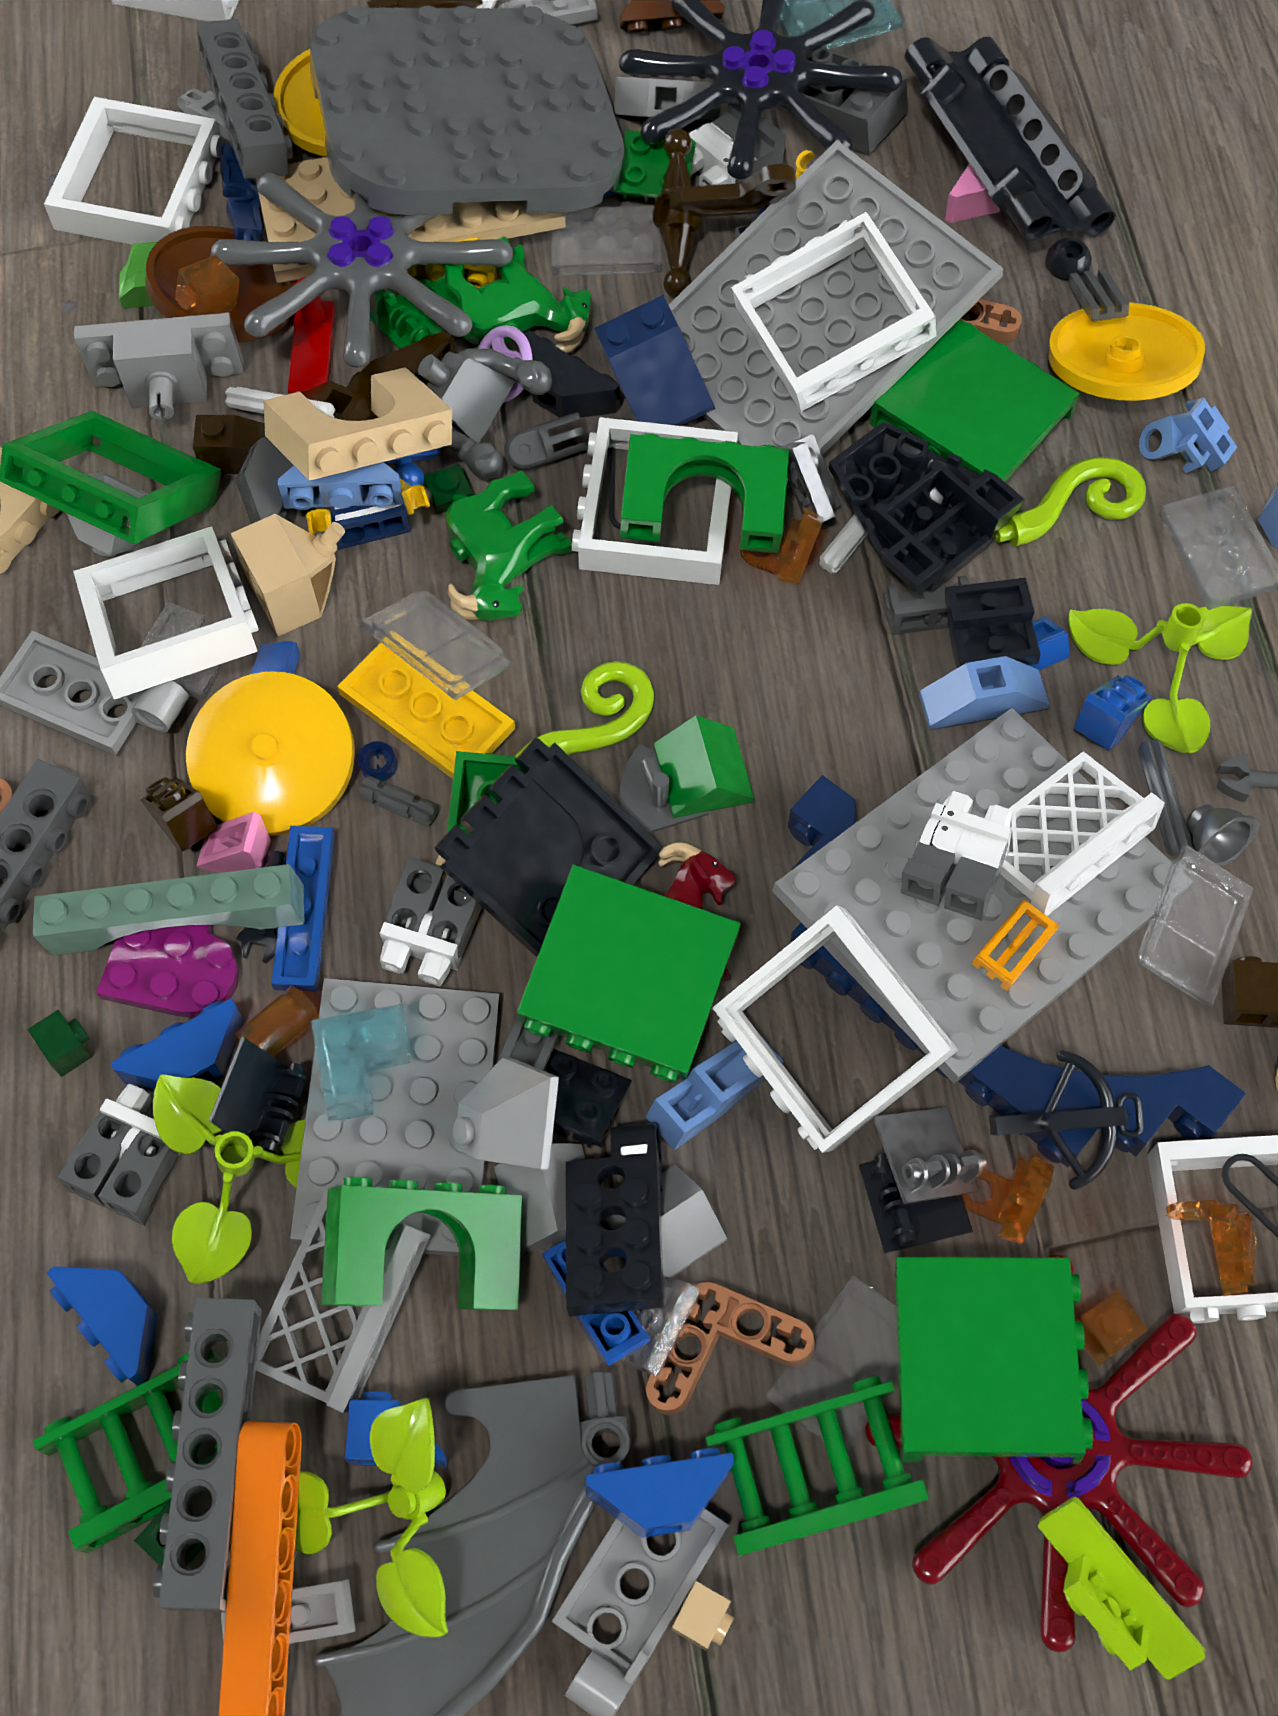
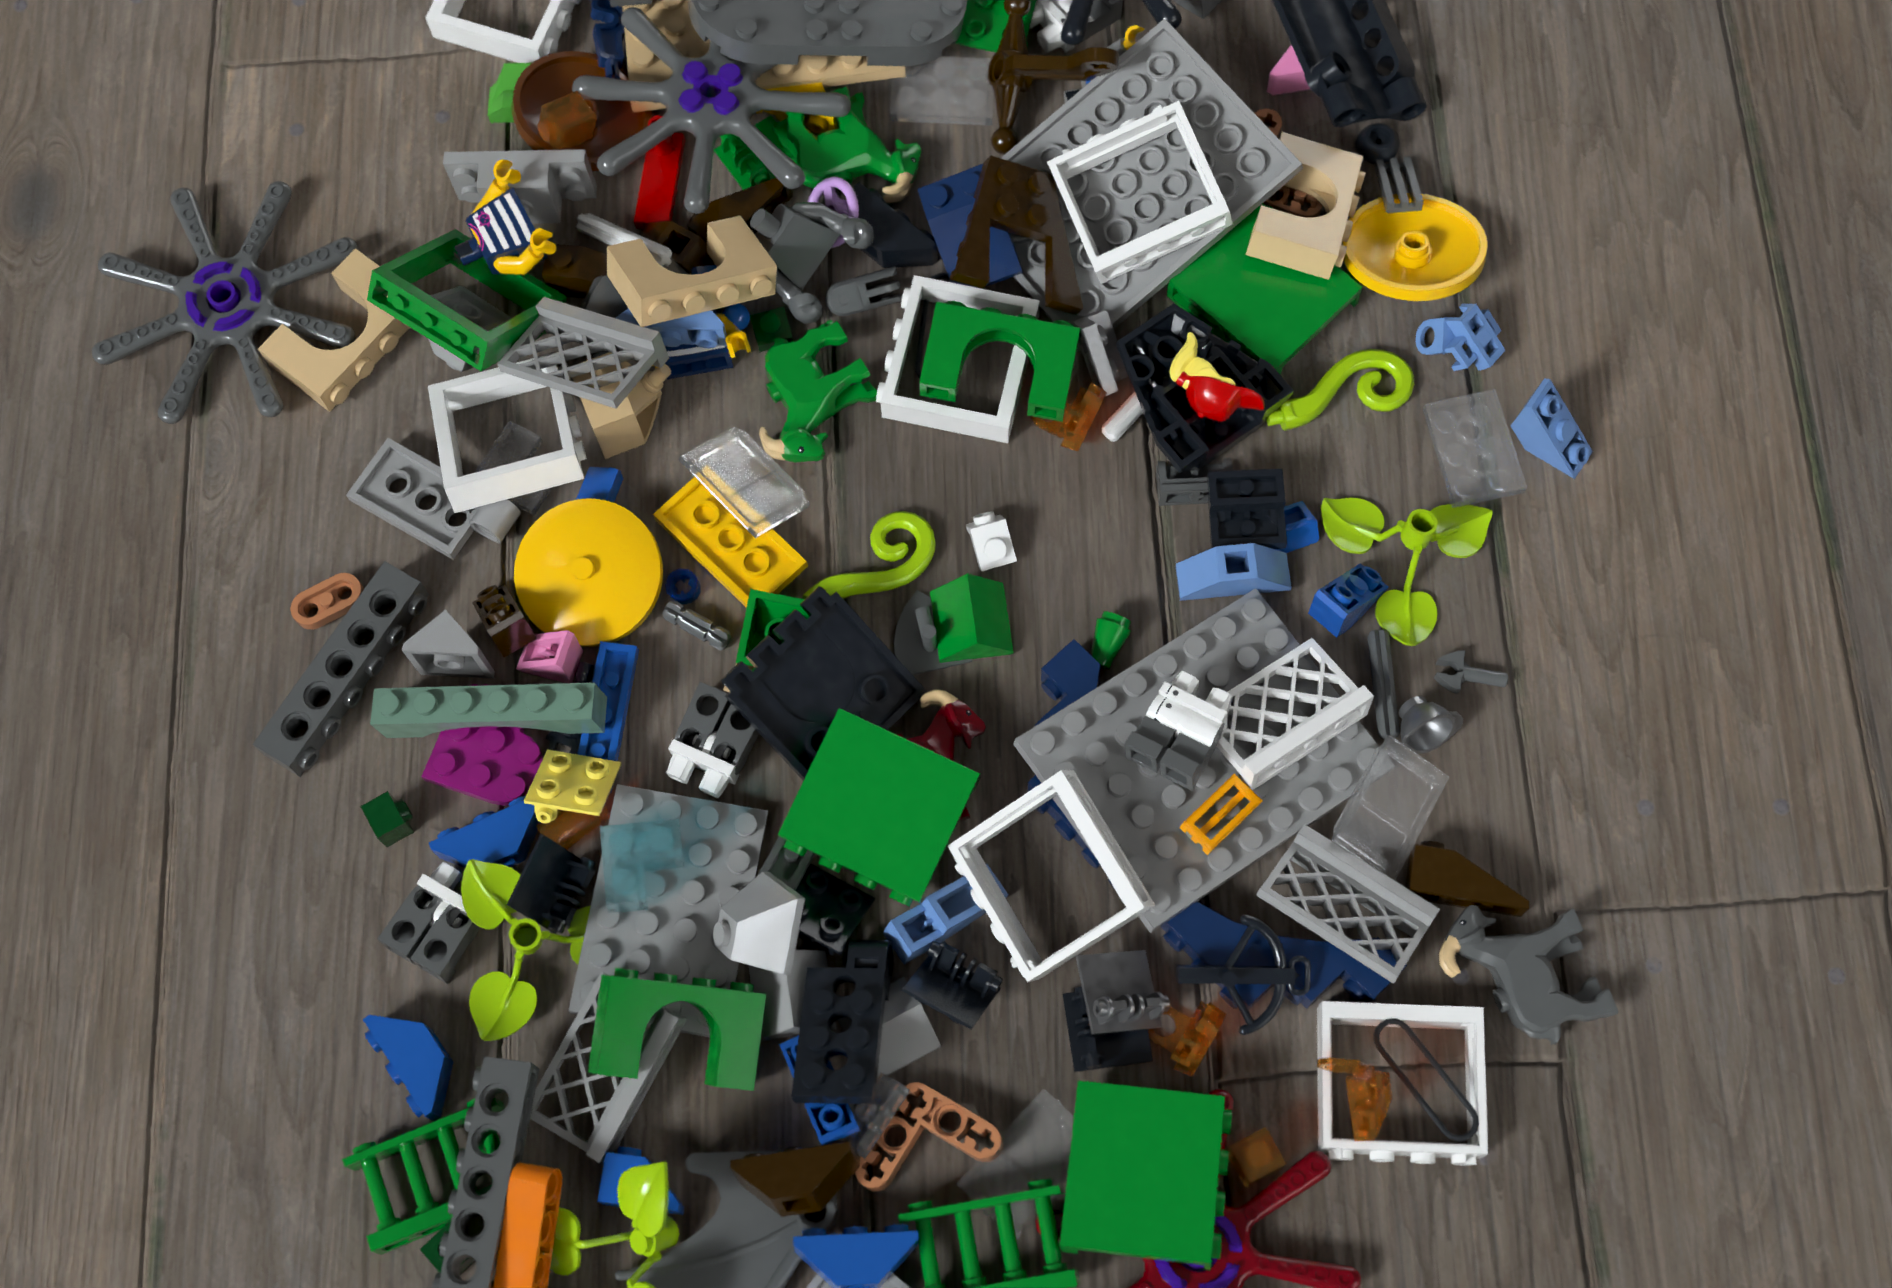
camera: 10 degrees right, 5 degrees up
(116, 849) = (446, 650): none -> light grey slope
(146, 398) = (503, 229): none -> torso
(248, 496) = (597, 334): none -> light grey fence
(271, 982) = (571, 784): none -> light yellow hinge
(582, 1404) = (798, 1177): none -> dark brown slope
(713, 335) = (1027, 205): none -> dark brown wing
(715, 684) = (991, 540): none -> white bracket
(733, 1170) = (952, 987): none -> black hinge
(859, 771) = (1109, 637): none -> green cone
(934, 500) = (1206, 390): none -> red hair
(1015, 349) = (1313, 242): none -> tan arch
(1181, 1016) = (1359, 885): none -> light grey fence

